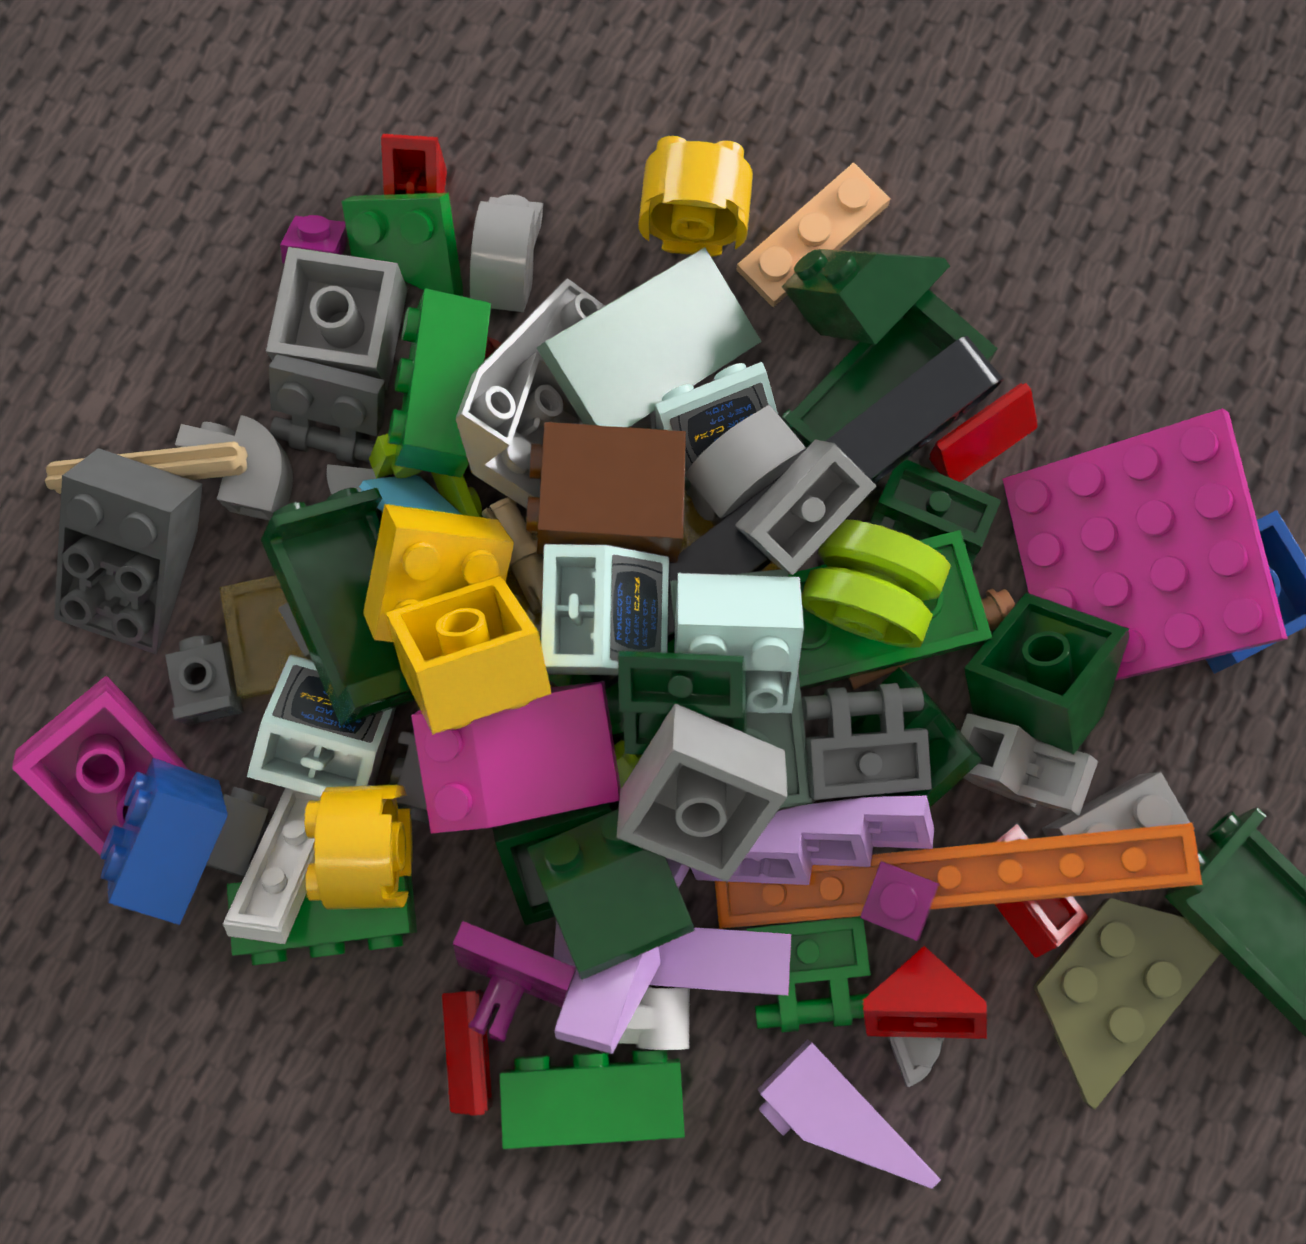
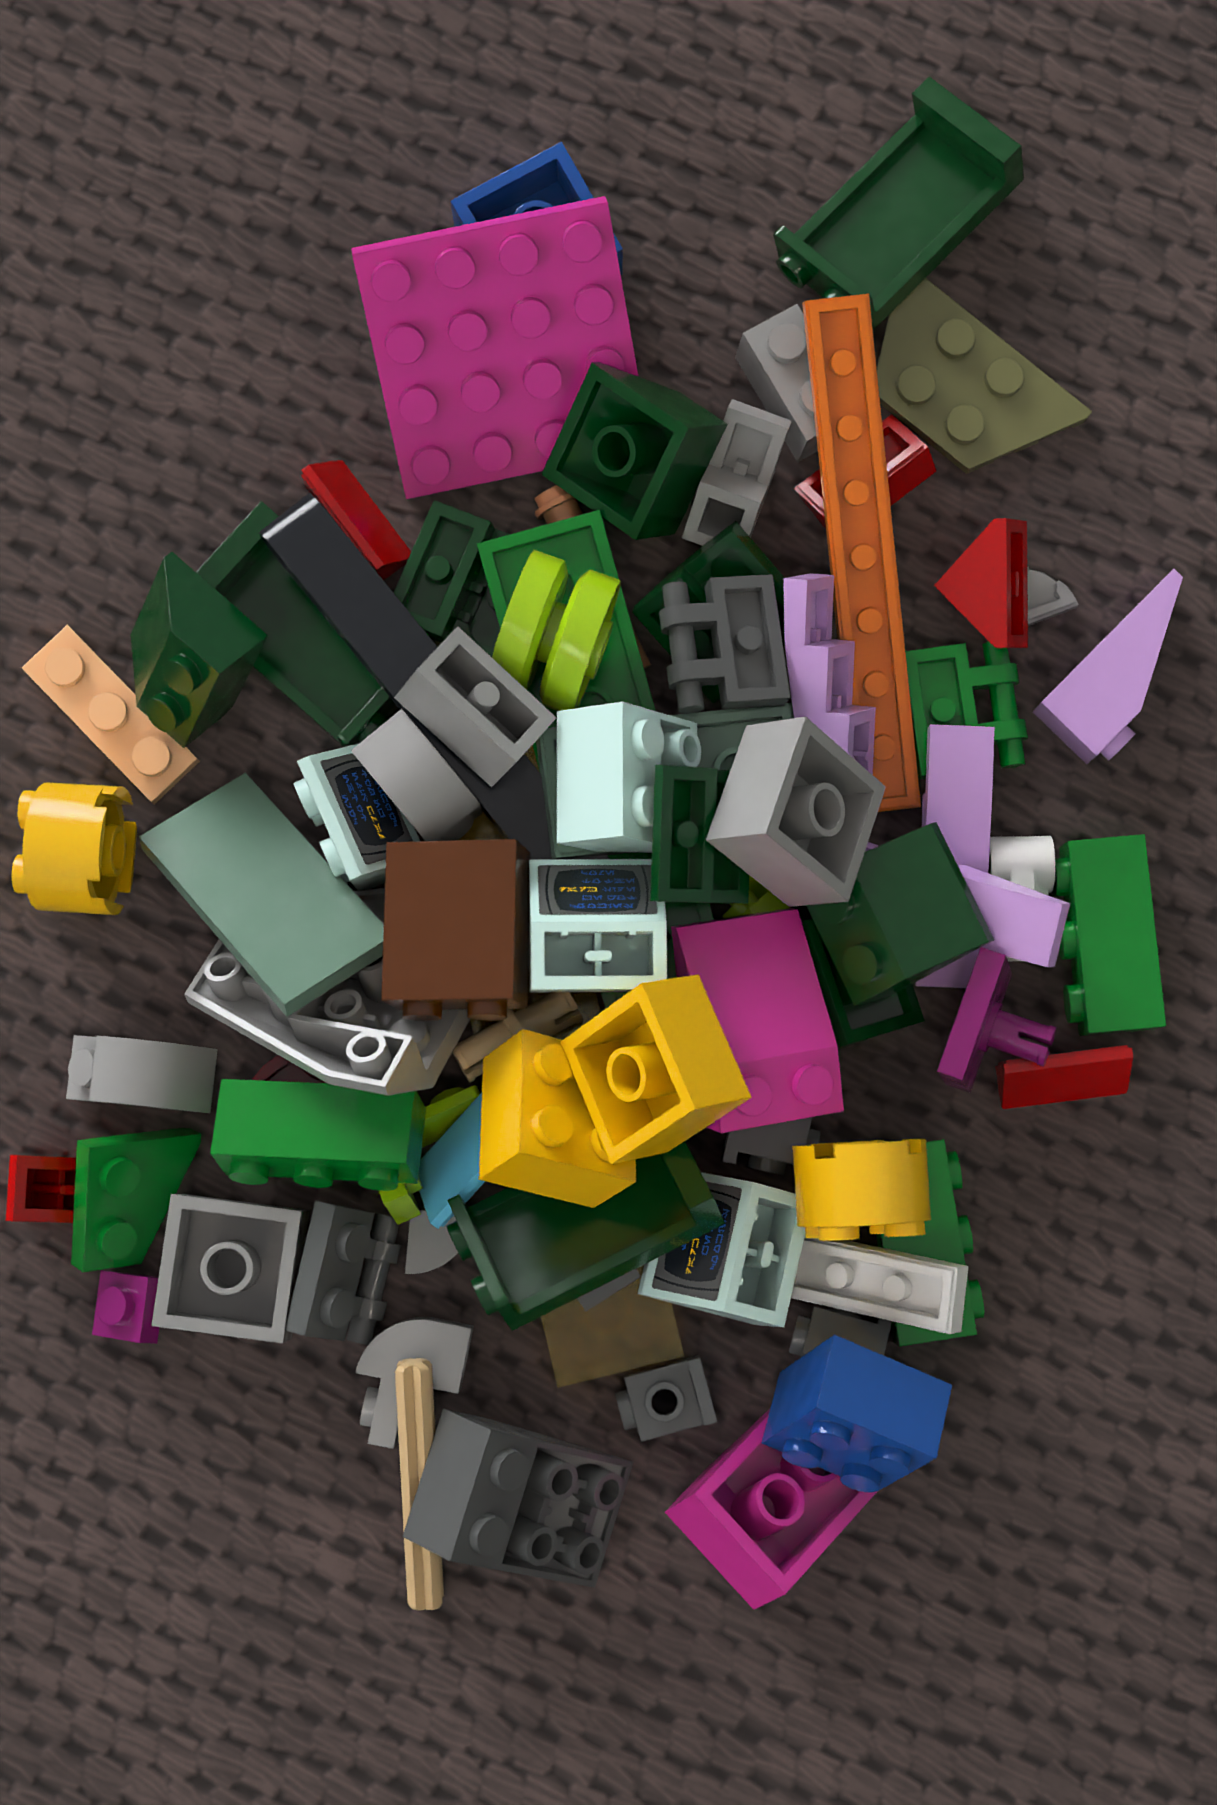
camera: 95 degrees left, 5 degrees up
(899, 900) = (891, 609): magenta plate -> none

